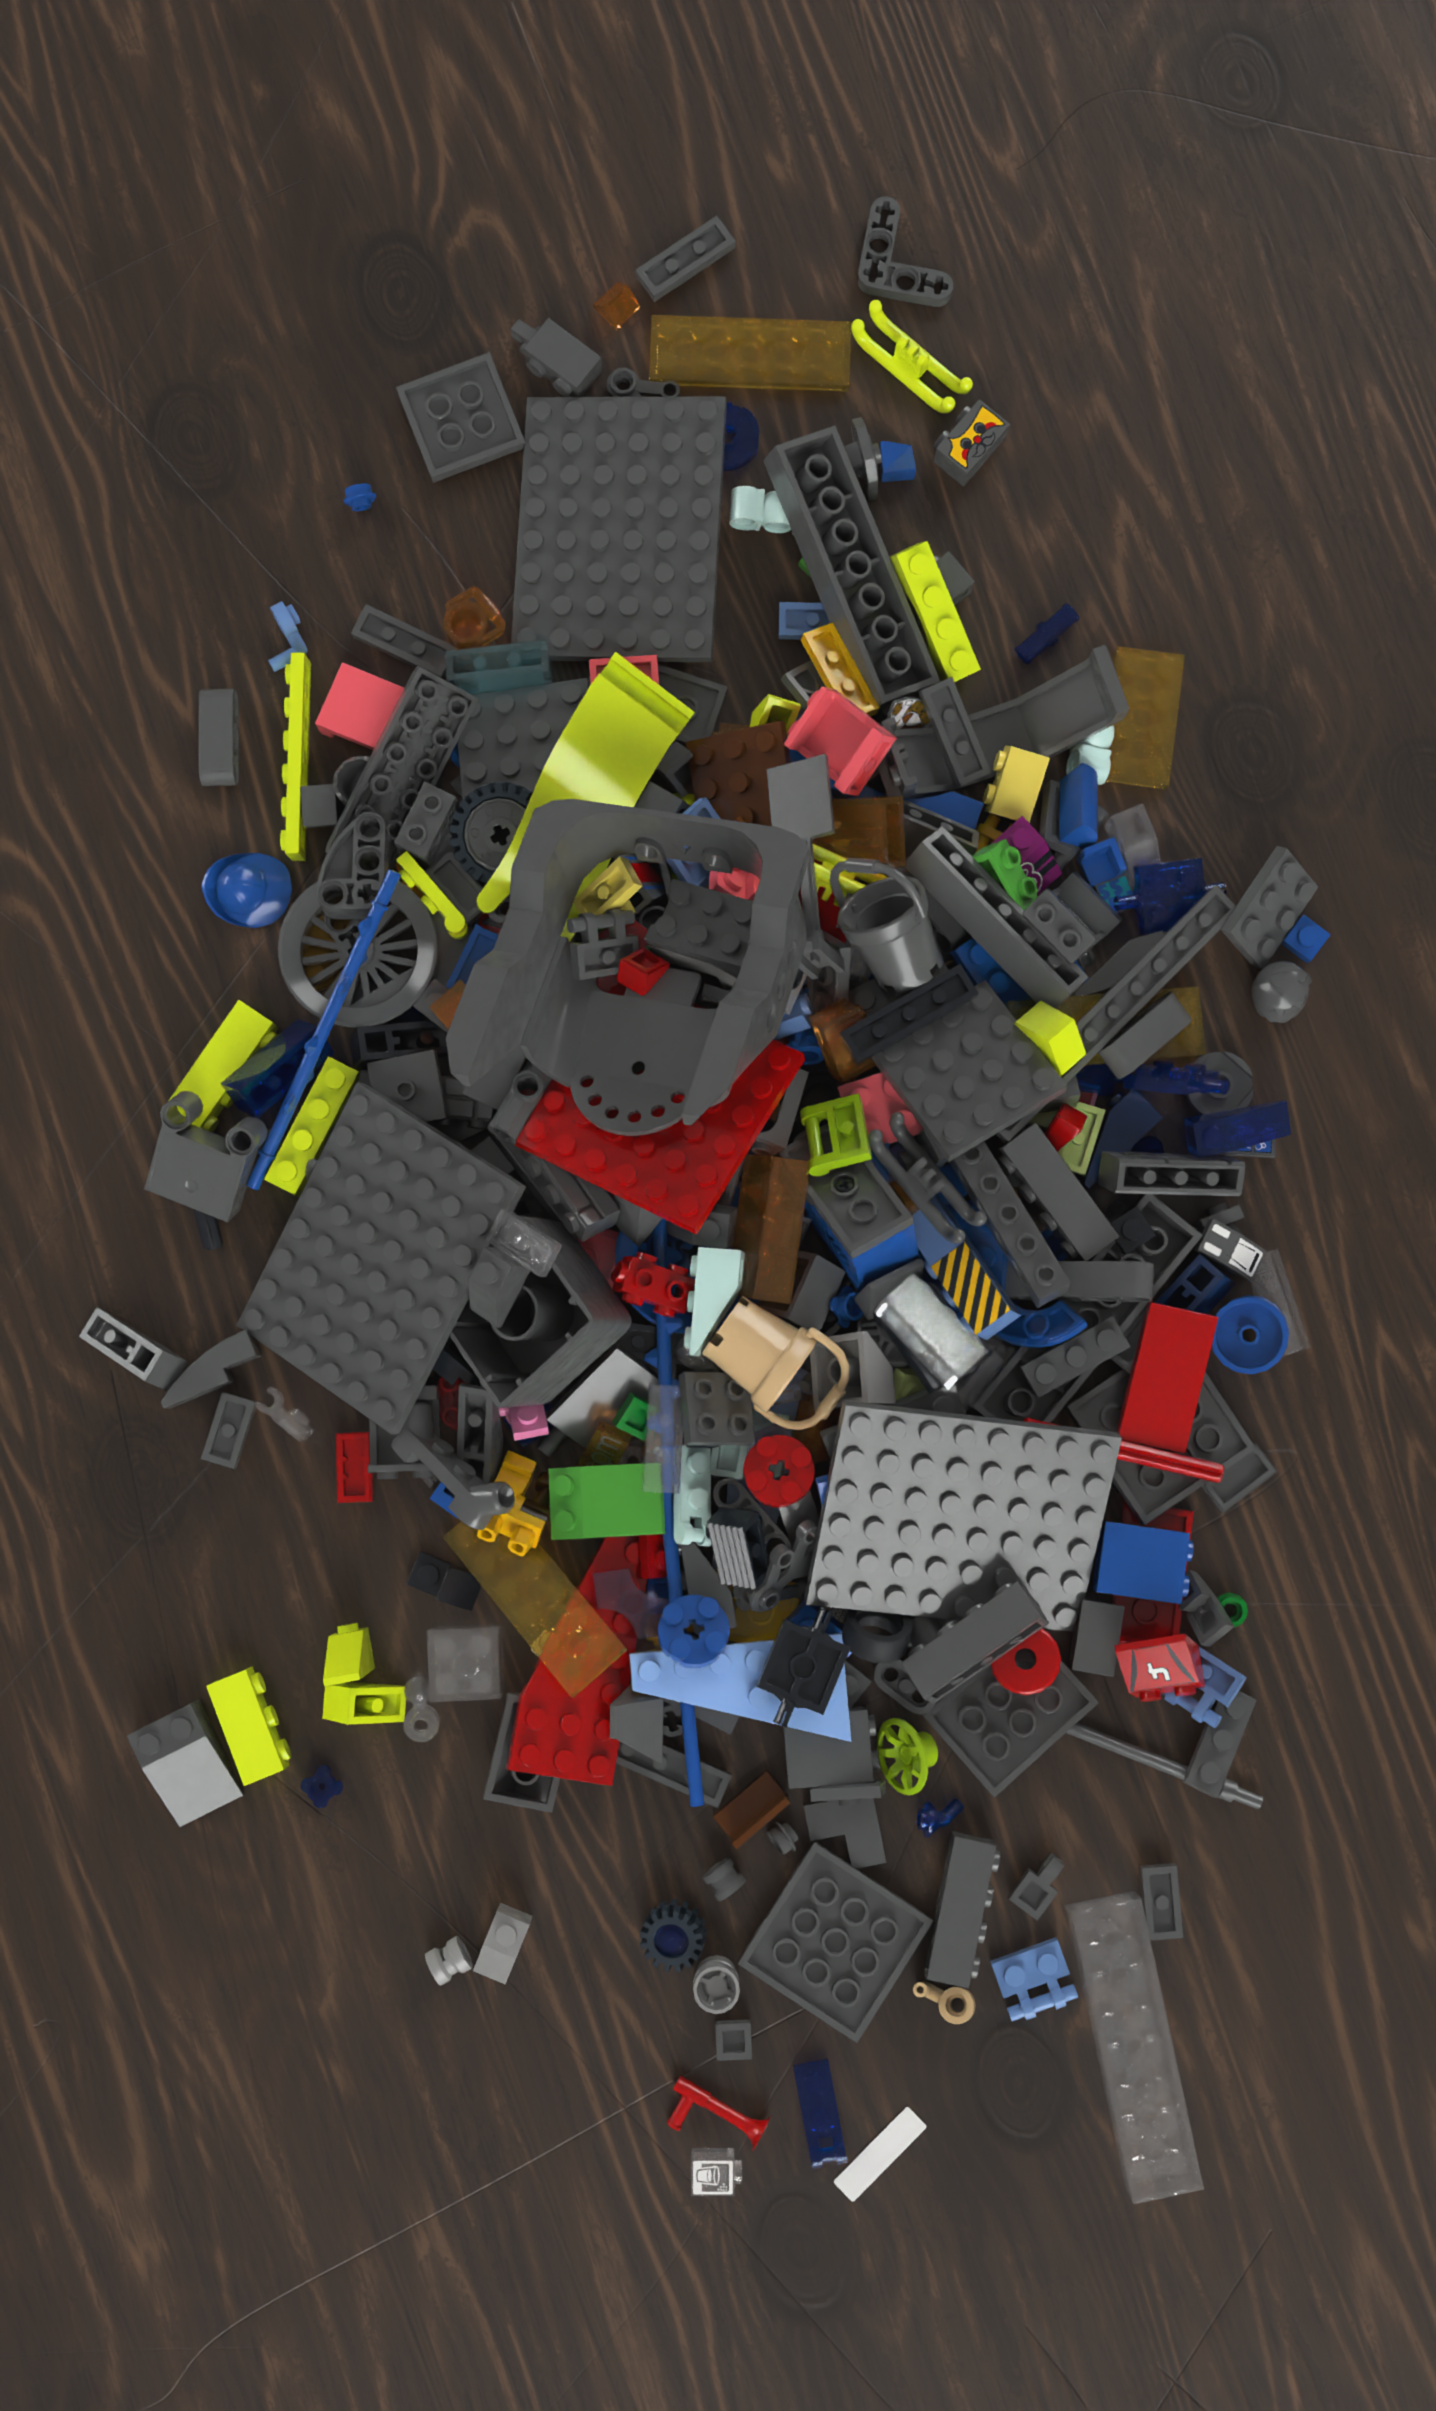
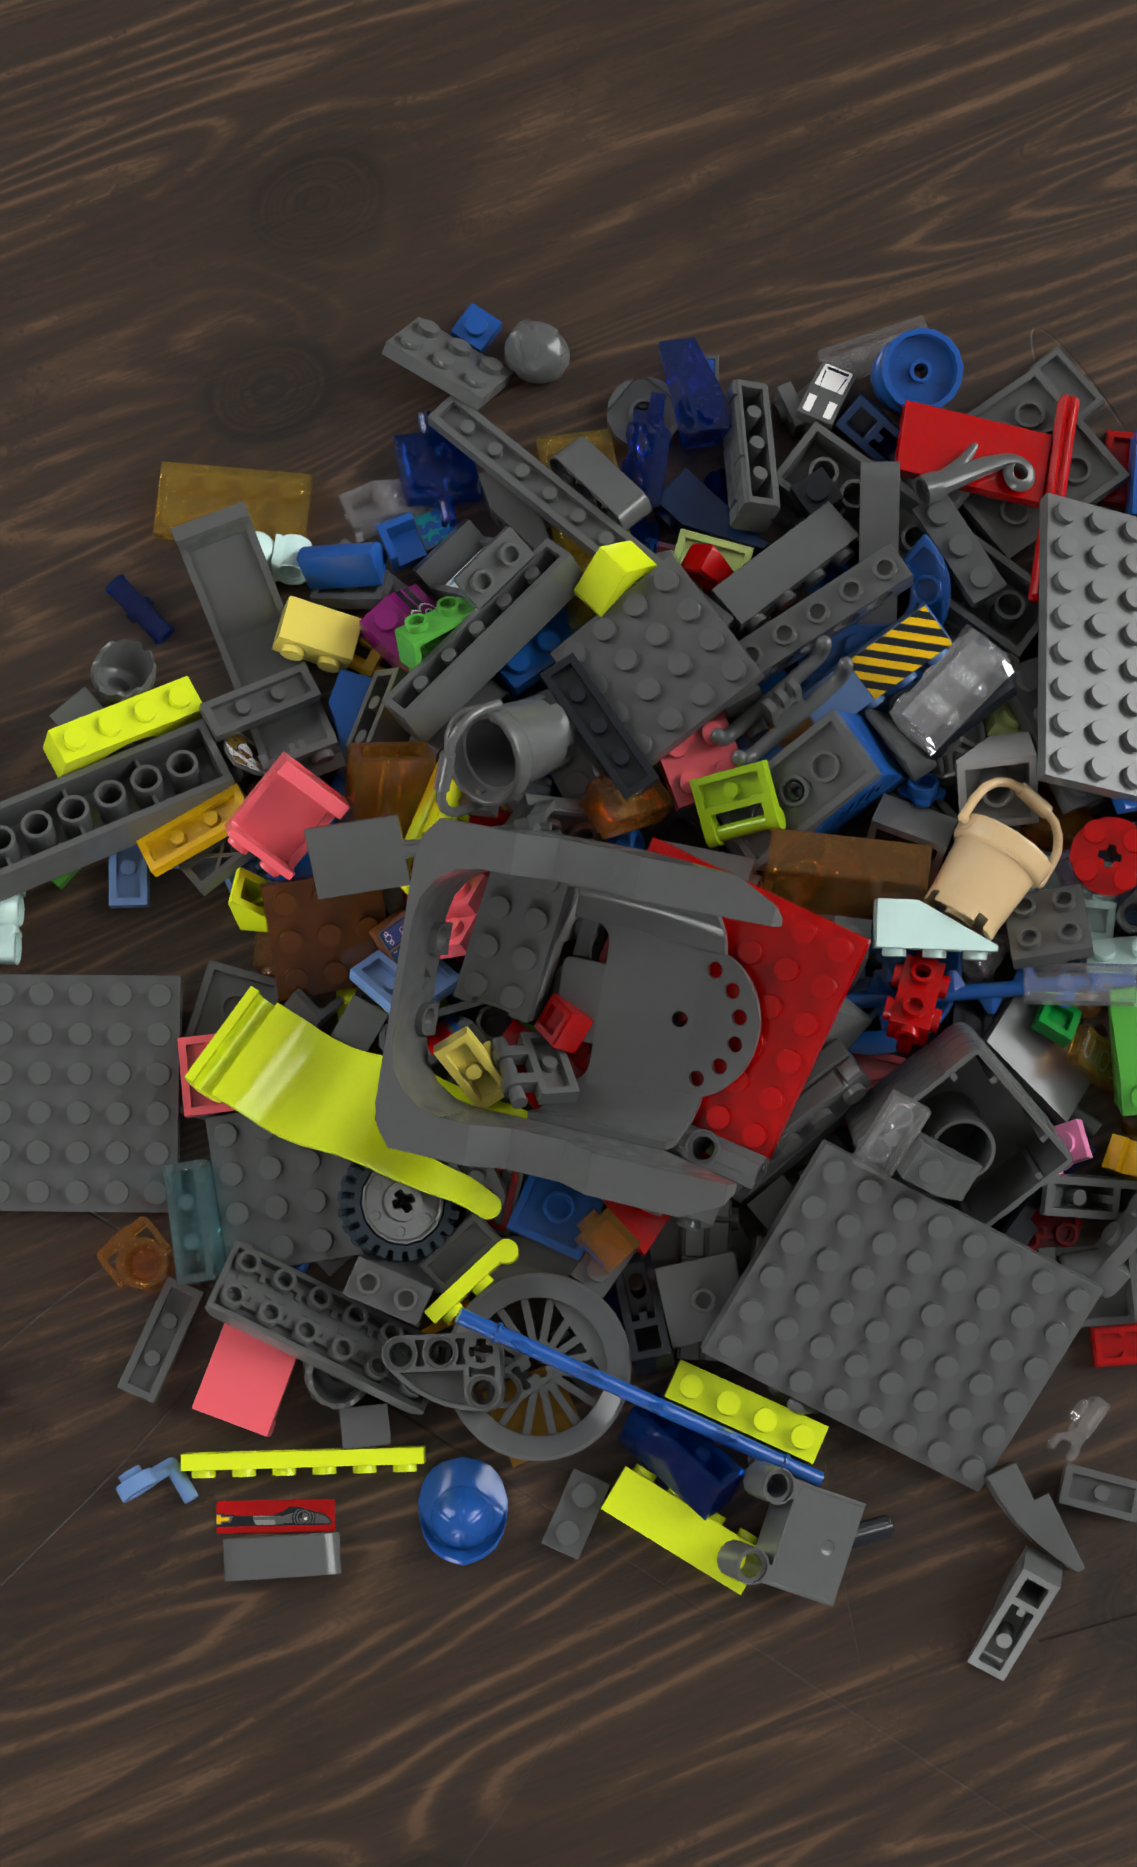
camera: 90 degrees left, 5 degrees down
(240, 983) = (575, 1513): none -> dark grey plate
(254, 735) = (275, 1516): none -> red sticker
(987, 616) = (123, 671): none -> dark grey hair
(1147, 1365) = (936, 484): none -> dark grey plant

